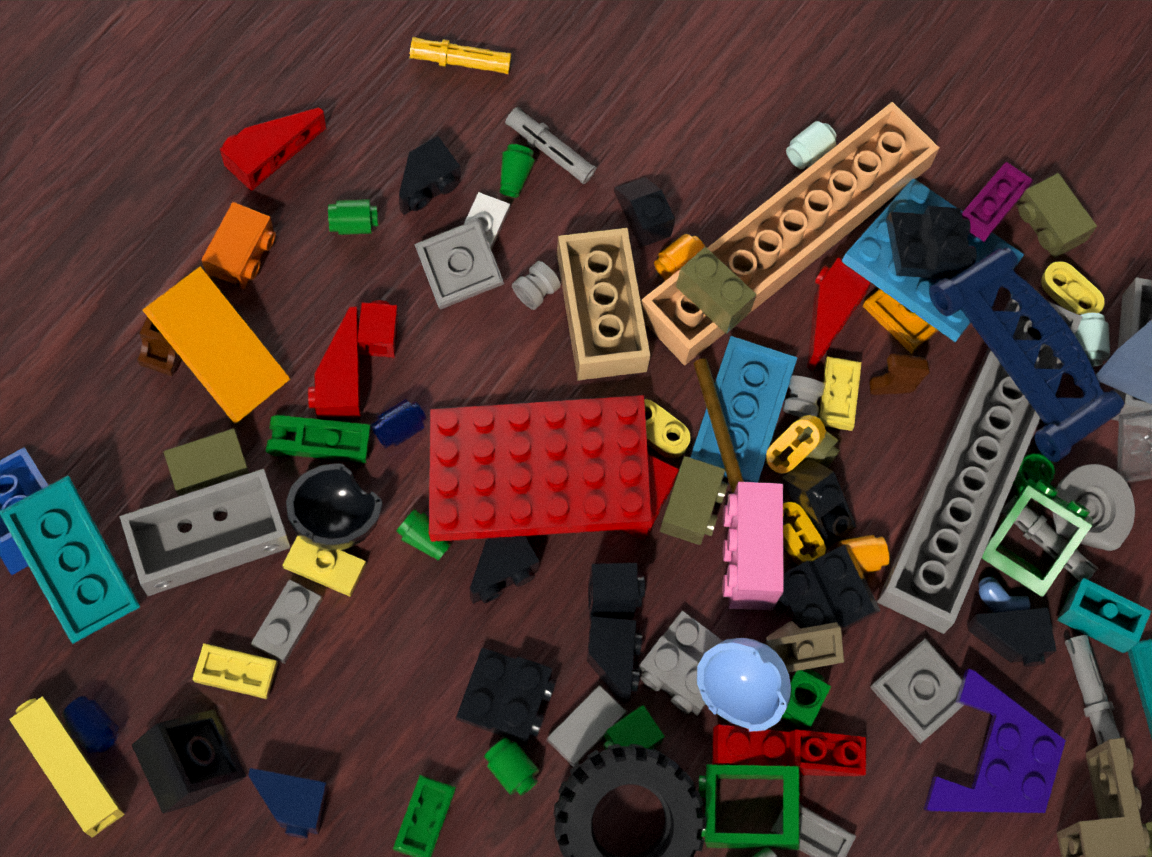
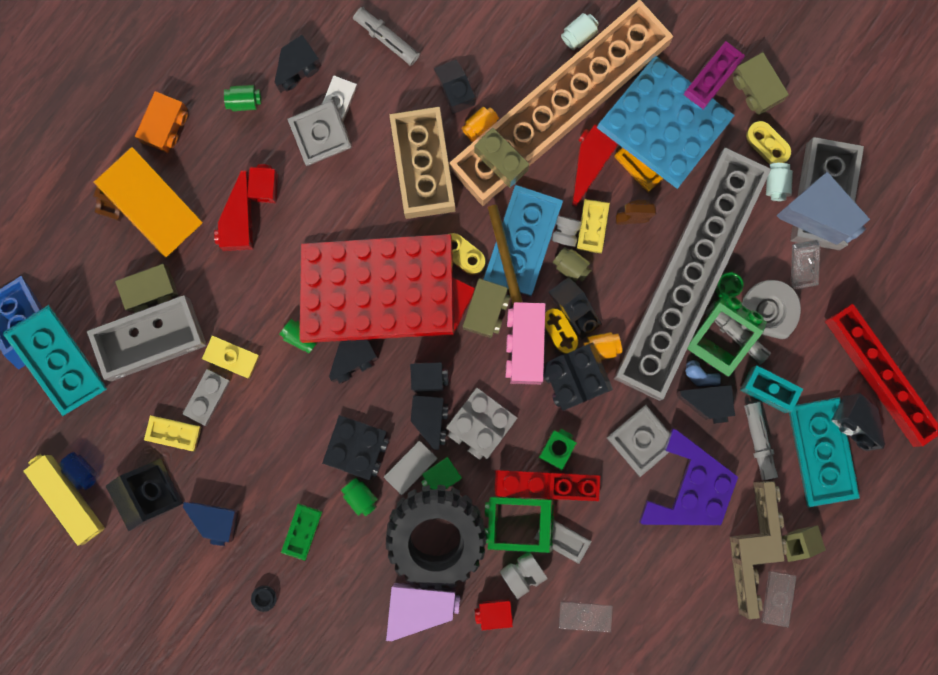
camera: 10 degrees right, 15 degrees up
(267, 146) = (179, 43): red slope -> none
(319, 439) = (224, 267): green plate -> none
(331, 508) = (232, 320): black cylinder -> none
(399, 423) = (279, 255): clear blue brick -> none
(515, 168) = (360, 56): green cone -> none
(536, 285) = (375, 148): light grey wheel -> none
(744, 683) = (515, 444): light blue cylinder -> none
(801, 450) = (561, 272): yellow beam -> none
(807, 646) = (555, 418): dark tan slope -> none
(930, 243) = (662, 114): black plate -> none
(1065, 418) = (690, 157): dark blue piece -> none

